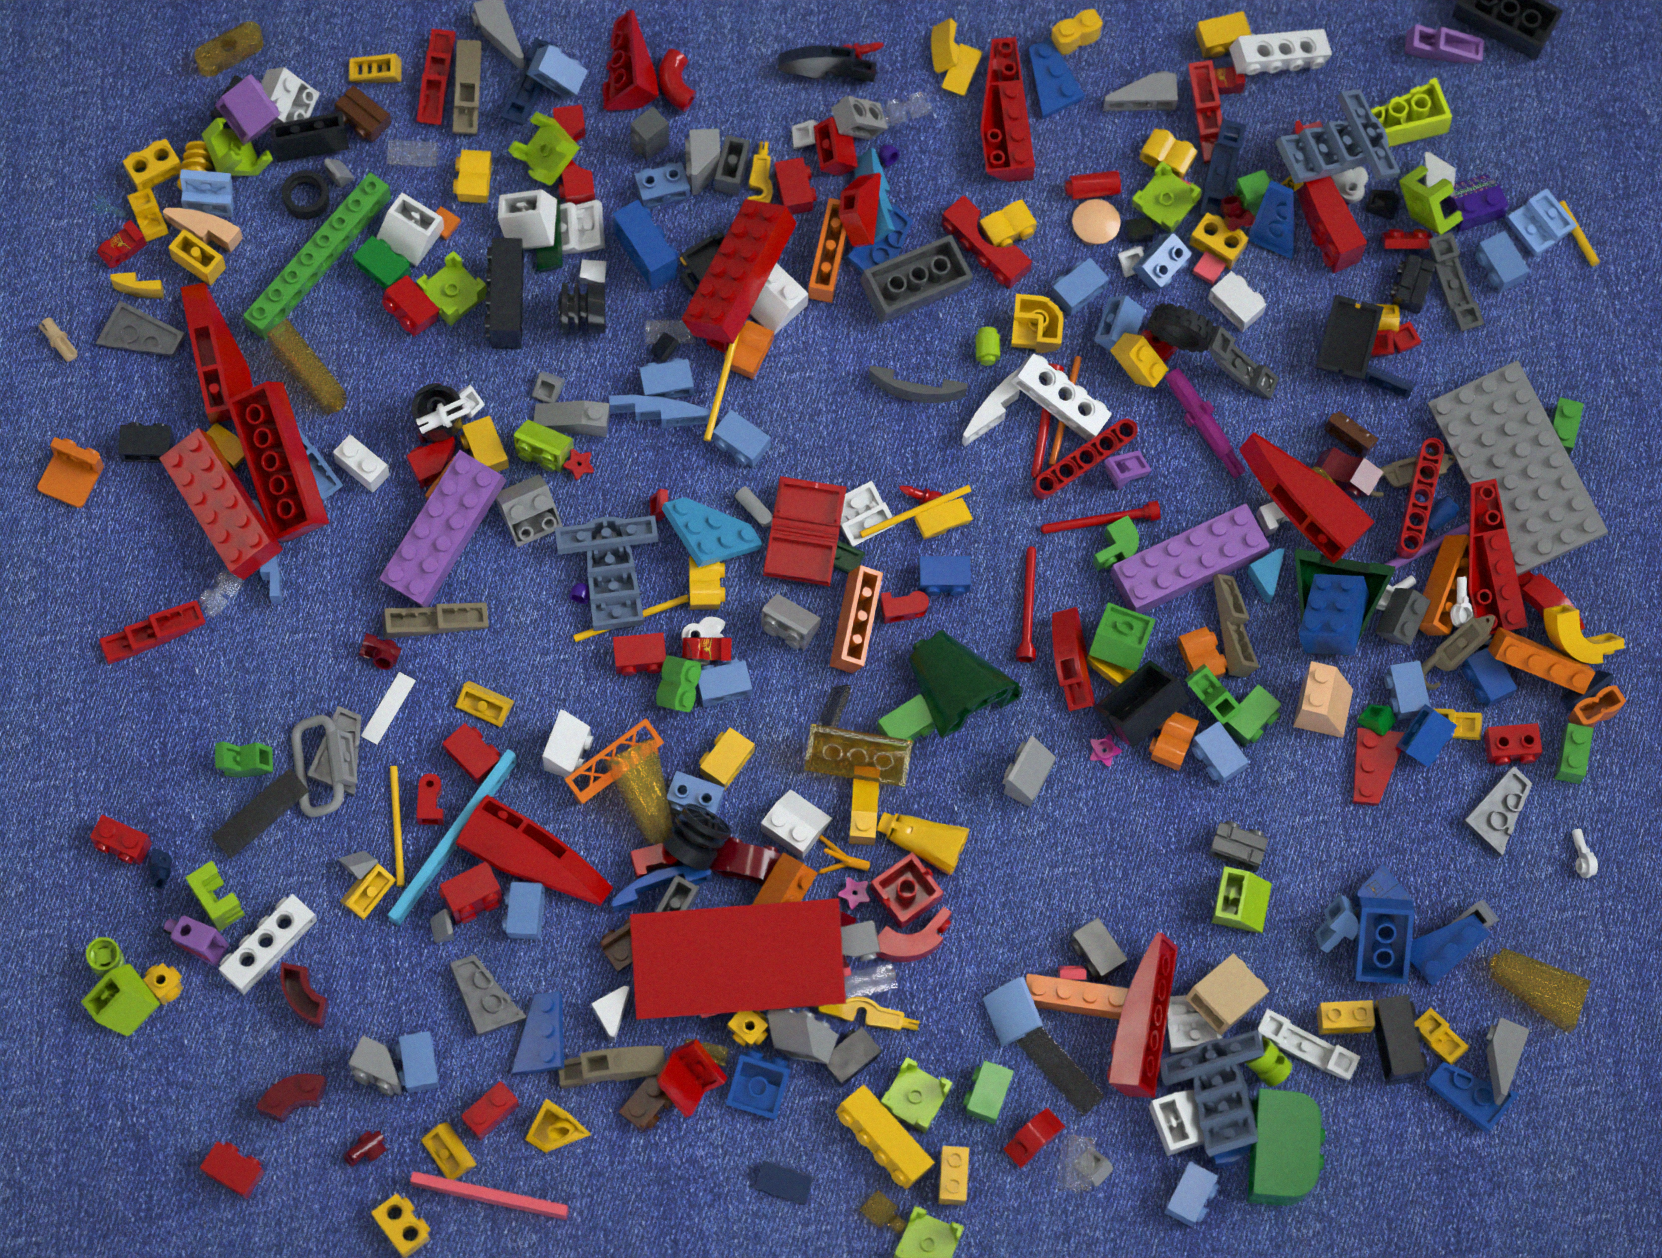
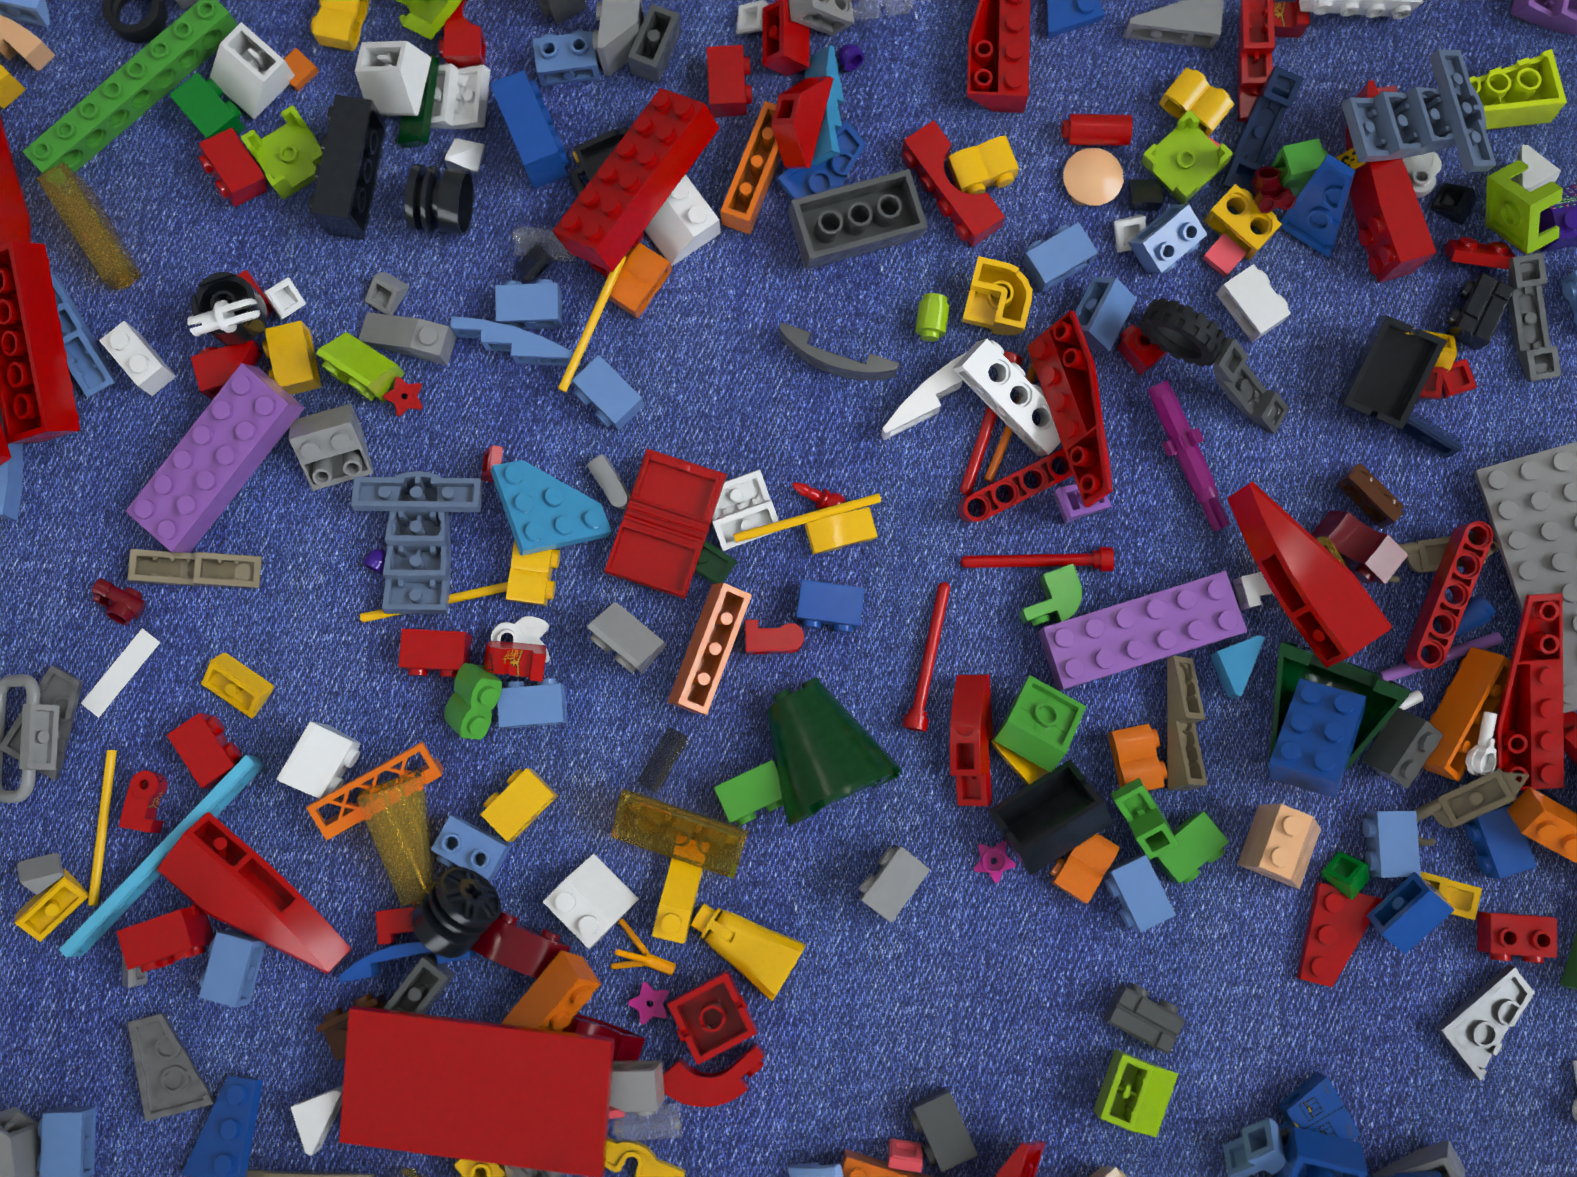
camera: 15 degrees right, 10 degrees up
(760, 173) = (690, 61): yellow piece -> none
(1106, 387) = (1073, 398): none -> red wedge
(1139, 360) = (1120, 363): yellow brick -> none

